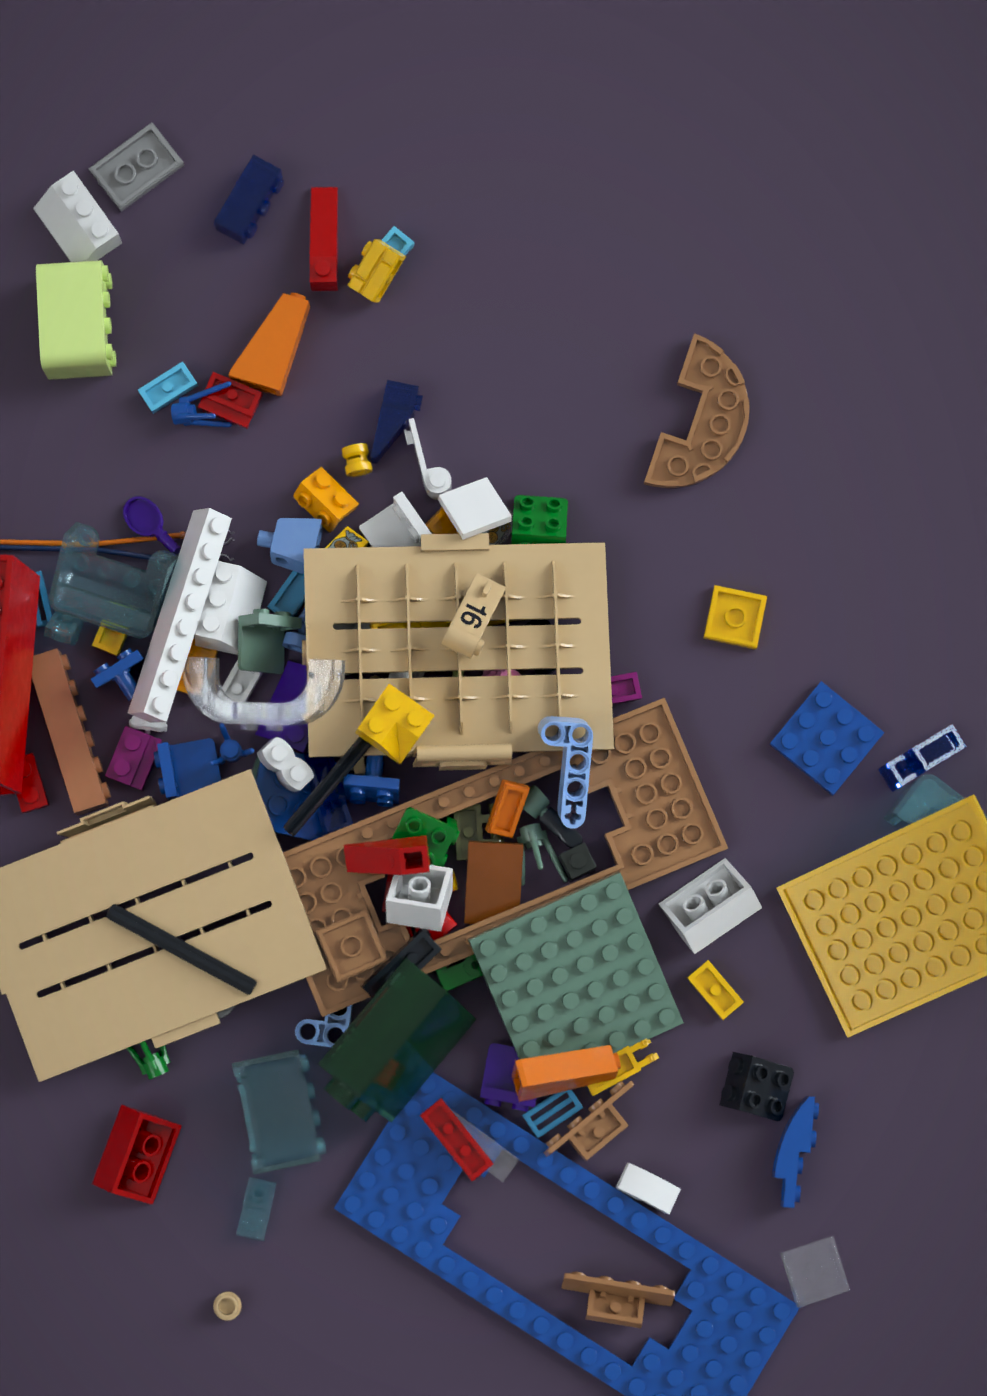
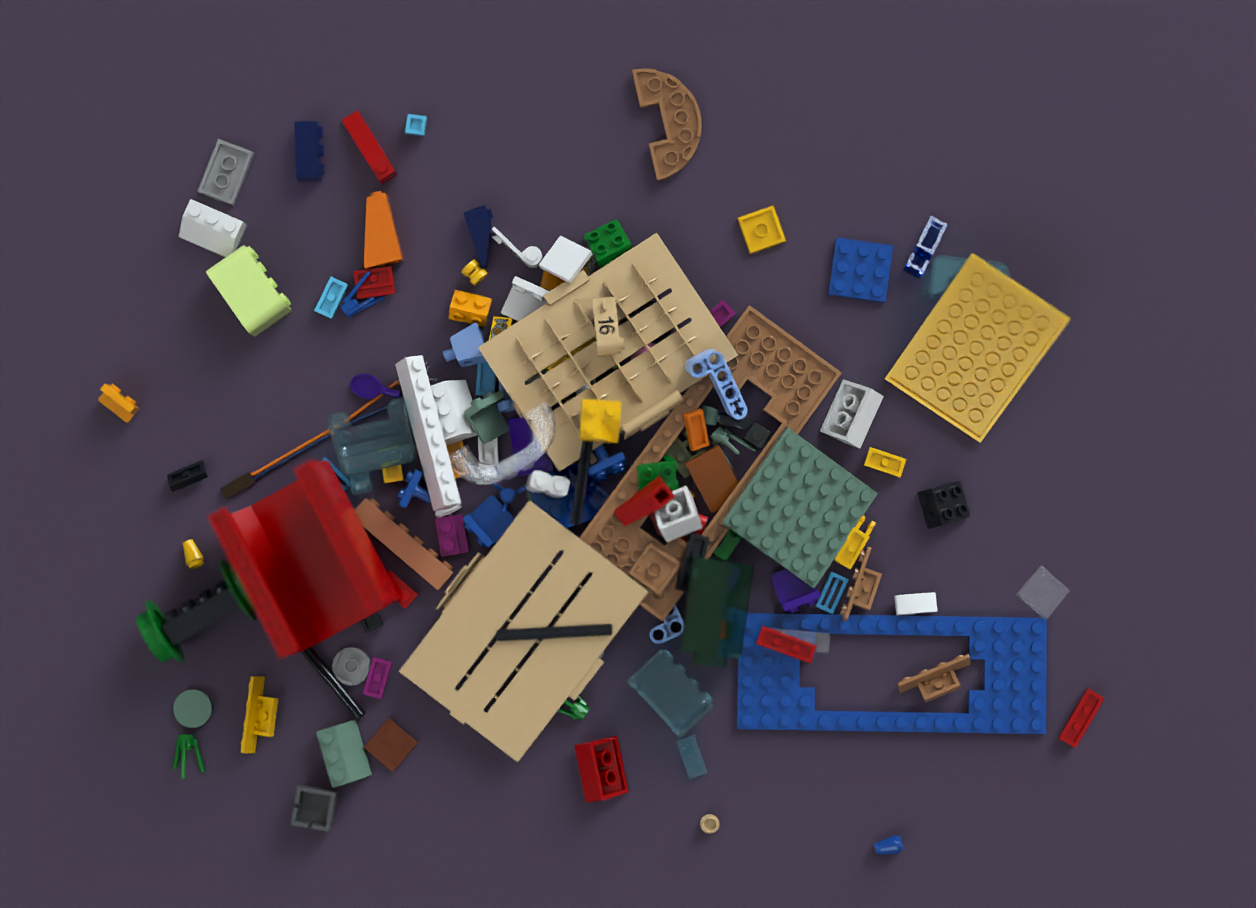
camera: 25 degrees left, 5 degrees up
(375, 270) = (413, 148): yellow brick -> none
(564, 1071) = (825, 566): orange slope -> none
(795, 1138) = (985, 521): blue slope -> none

